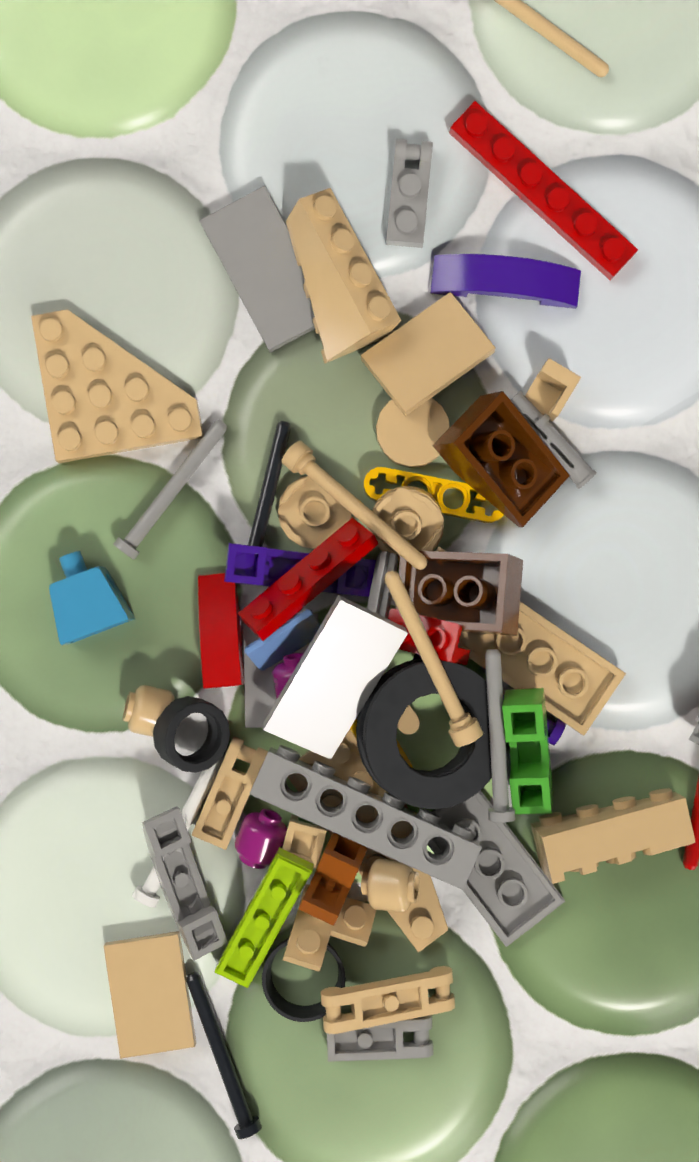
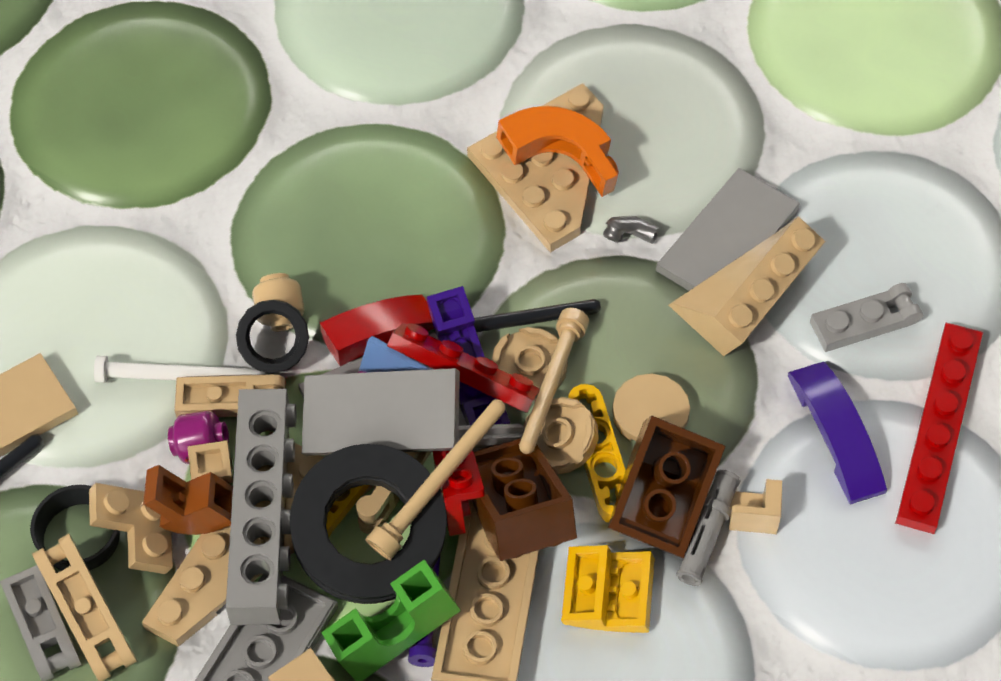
camera: 60 degrees right, 30 degrees down
(86, 601) = (353, 216): dark azure torso -> none
(94, 365) = (563, 132): none -> orange arch
(170, 490) = (488, 242): light grey bar -> none
(182, 883) = (129, 386): light grey slope -> none
(213, 354) = (633, 225): none -> flat silver arm
(264, 917) = (122, 462): lime tile -> none
(390, 885) = (201, 553): tan head -> none
(427, 353) = (728, 388): tan tile -> none
(501, 811) = (381, 583): light grey bar -> none
(564, 550) = (608, 589): none -> yellow slope

